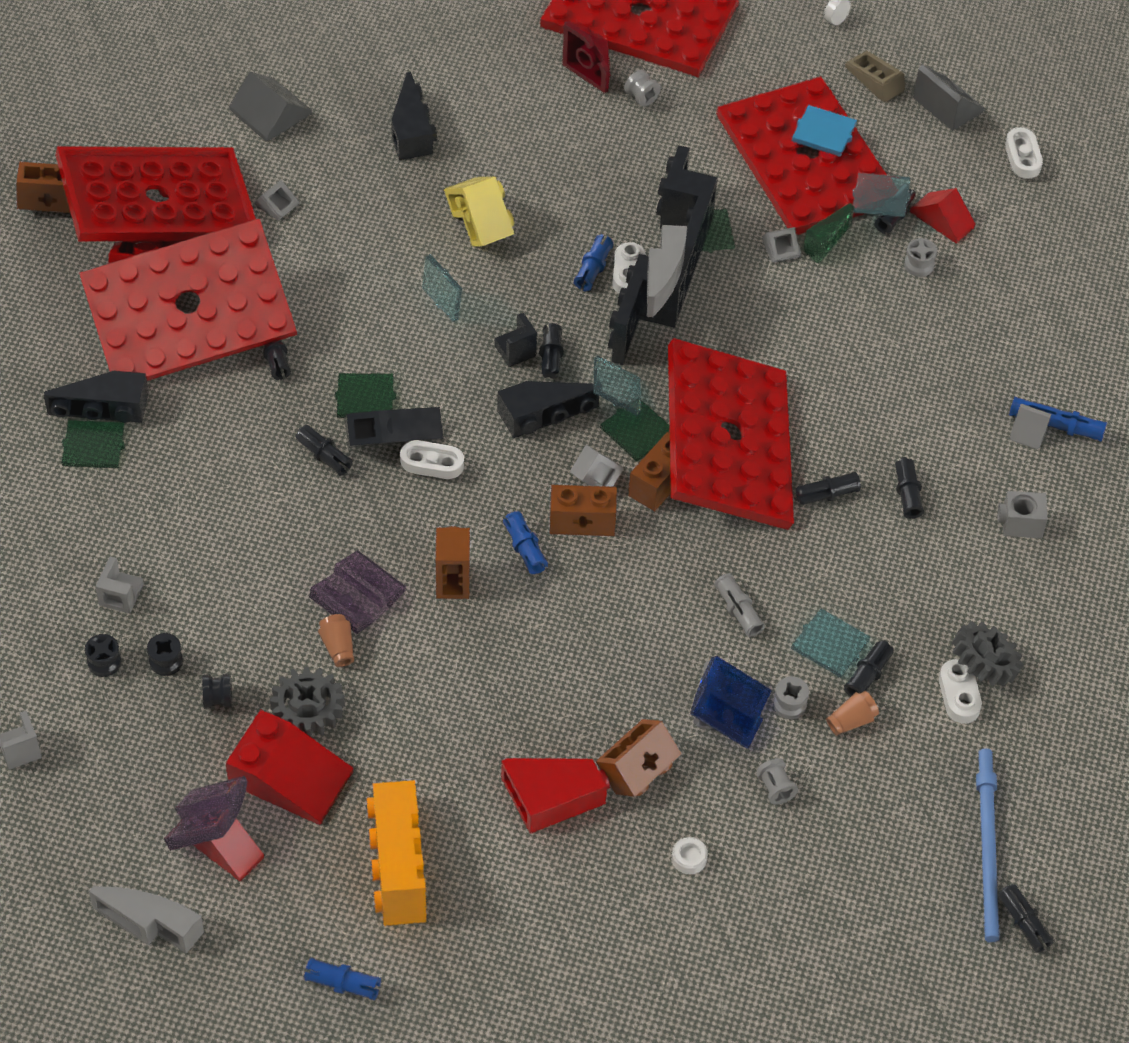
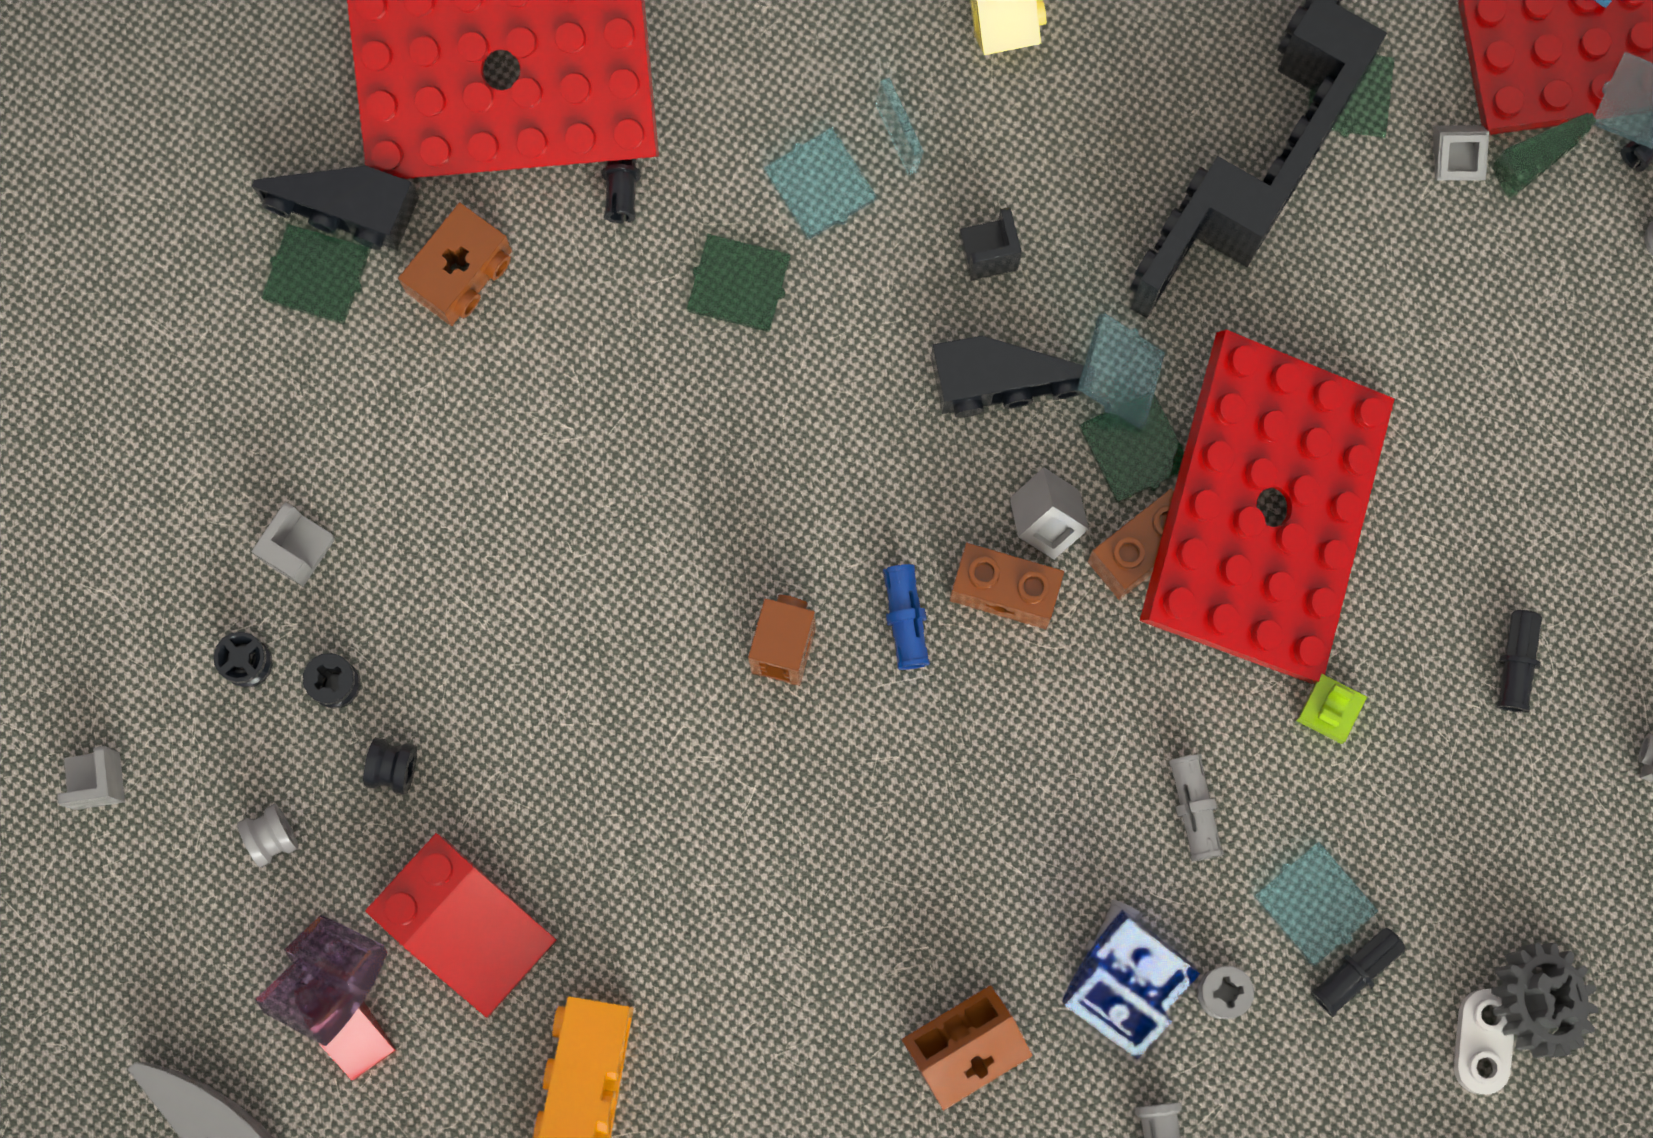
camera: 20 degrees right, 25 degrees up
(146, 747) = (267, 835): none -> light grey wheel
(184, 416) = (458, 240): none -> dark orange brick
(308, 700) = (495, 832): dark grey gear -> none
(323, 449) = (649, 373): black axle -> none
(337, 638) = (586, 719): nougat cone -> none
(357, 591) = (637, 638): clear purple slope -> none
(393, 426) = (757, 364): black slope -> none
(400, 335) = (820, 183): none -> clear light blue piece
(432, 459) = (807, 432): white plate -> none
(551, 350) = (1040, 274): black axle -> none
(553, 788) = (830, 1061): red slope -> none
(593, 262) = (1153, 119): blue pin -> none
(625, 255) = (1205, 137): white plate -> none
(665, 267) = (1248, 202): light grey slope -> none
(804, 536) = (1331, 709): none -> lime tile
(828, 488) = (1394, 632): black axle -> none
(853, 713) = (1309, 1045): nougat cone -> none

